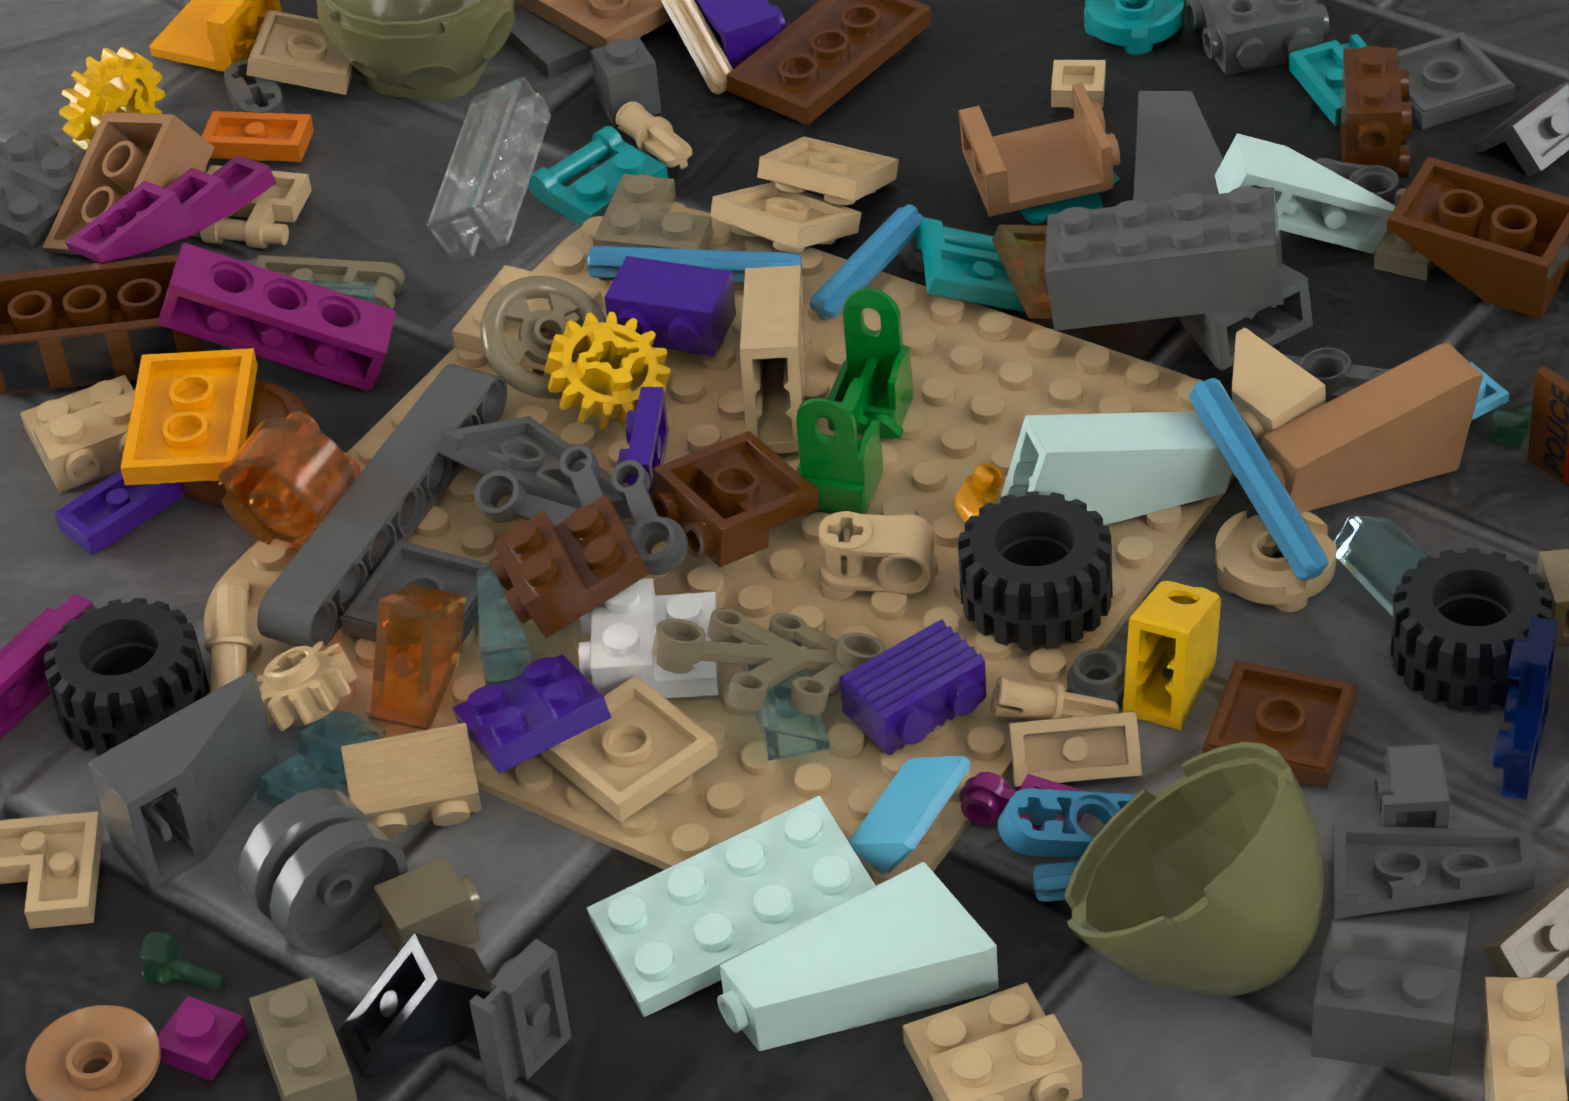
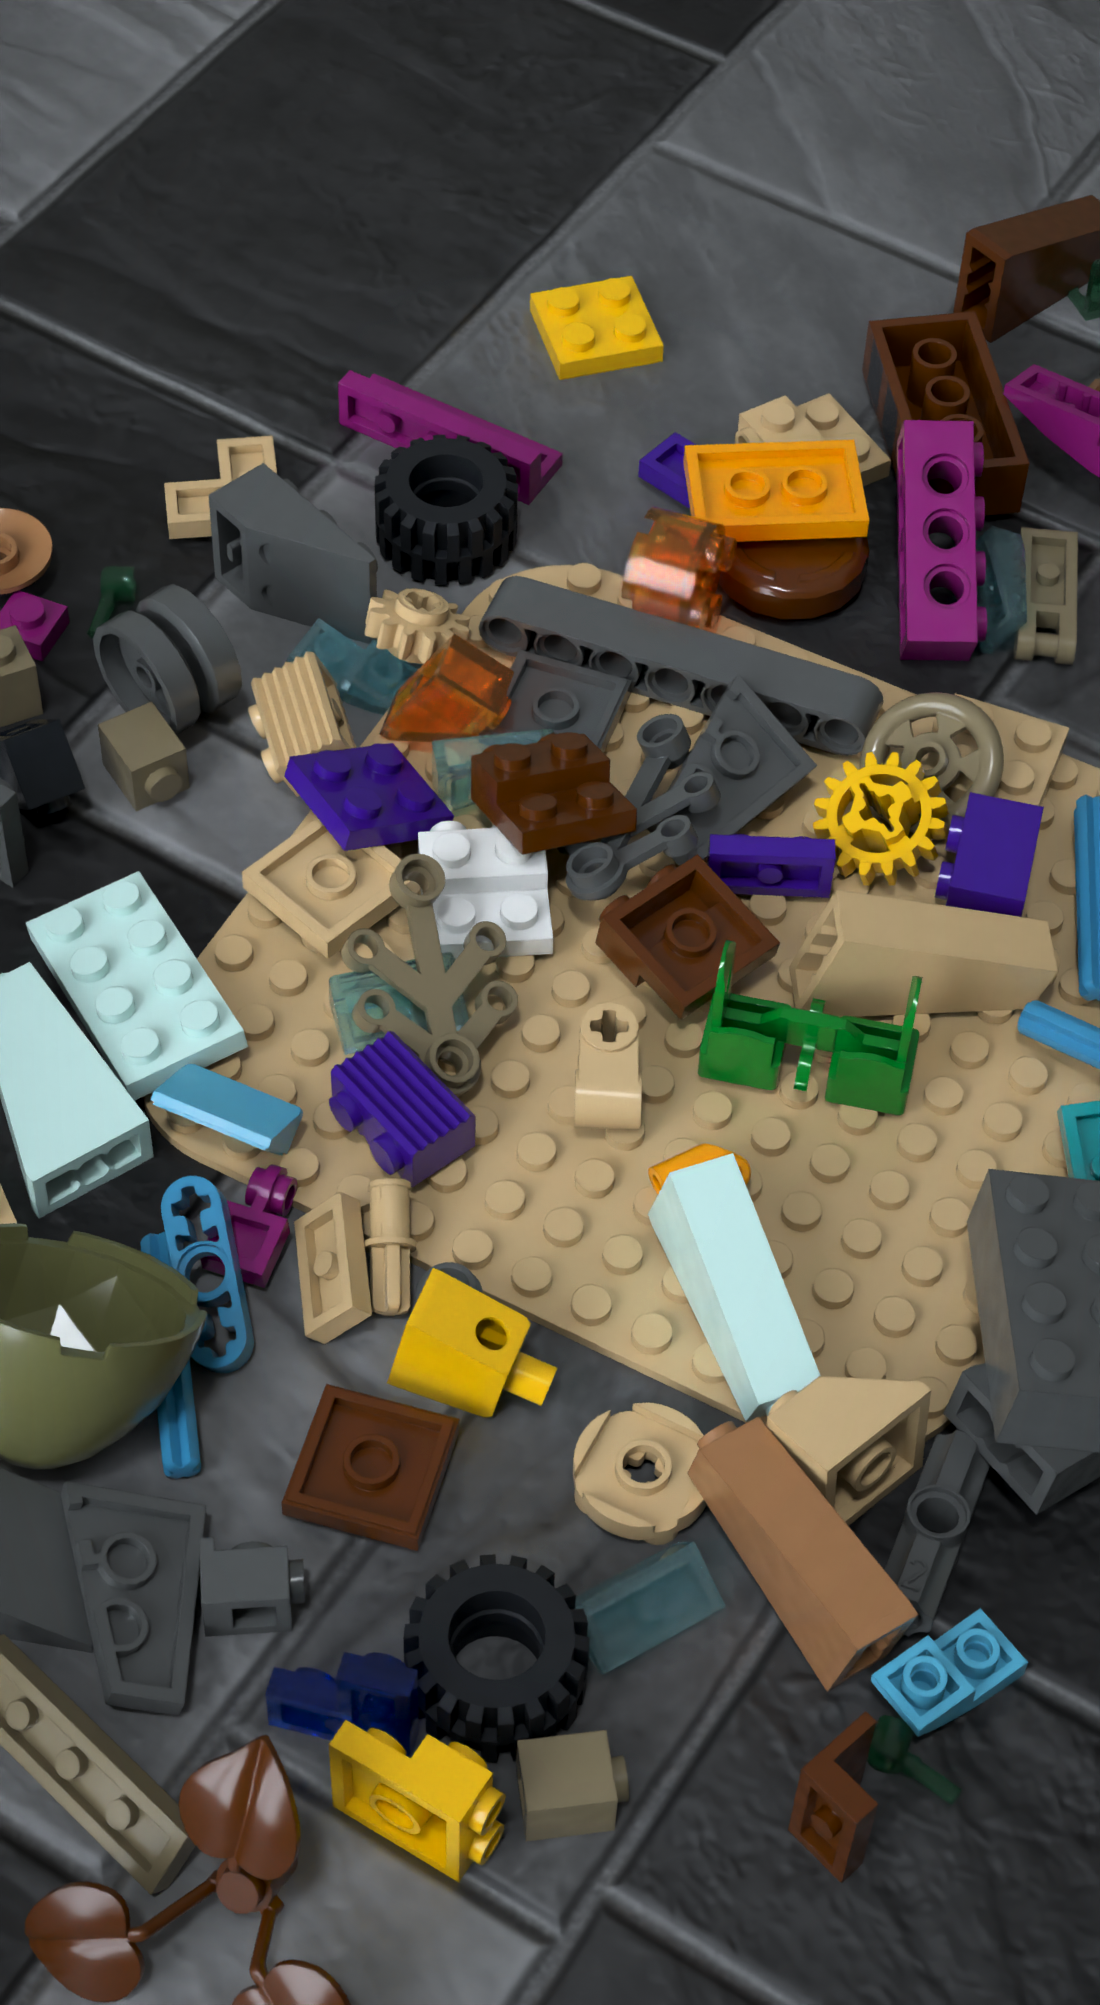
camera: 80 degrees right, 10 degrees up
(228, 635) = (486, 572): tan axle -> none
(1035, 570) = (574, 1165): black tyre -> none
(1258, 479) = (697, 1416): dark azure axle -> none

